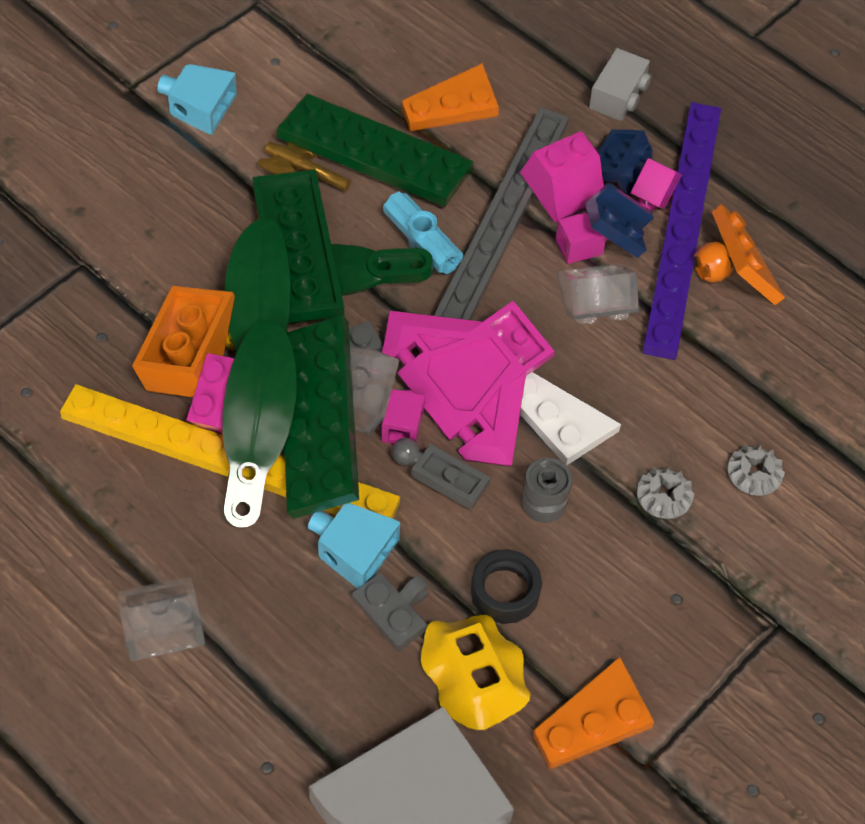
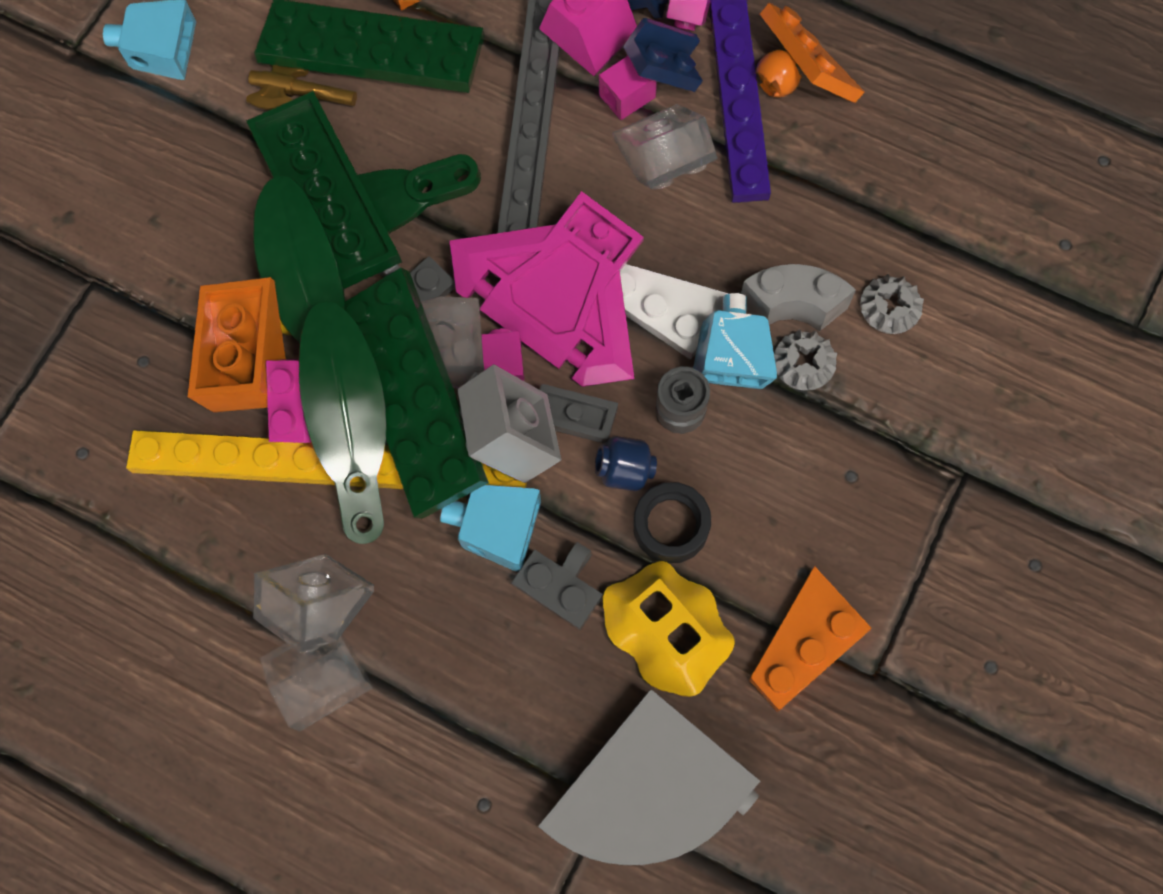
camera: 10 degrees left, 15 degrees up
(175, 553) = (309, 601): none -> clear slope
(391, 460) = (508, 424): none -> light grey brick
(422, 231) = (439, 123): medium azure piece -> none
(481, 527) = (625, 463): none -> dark blue head
(607, 462) = (736, 346): none -> medium azure torso
(673, 436) = (798, 294): none -> light grey brick

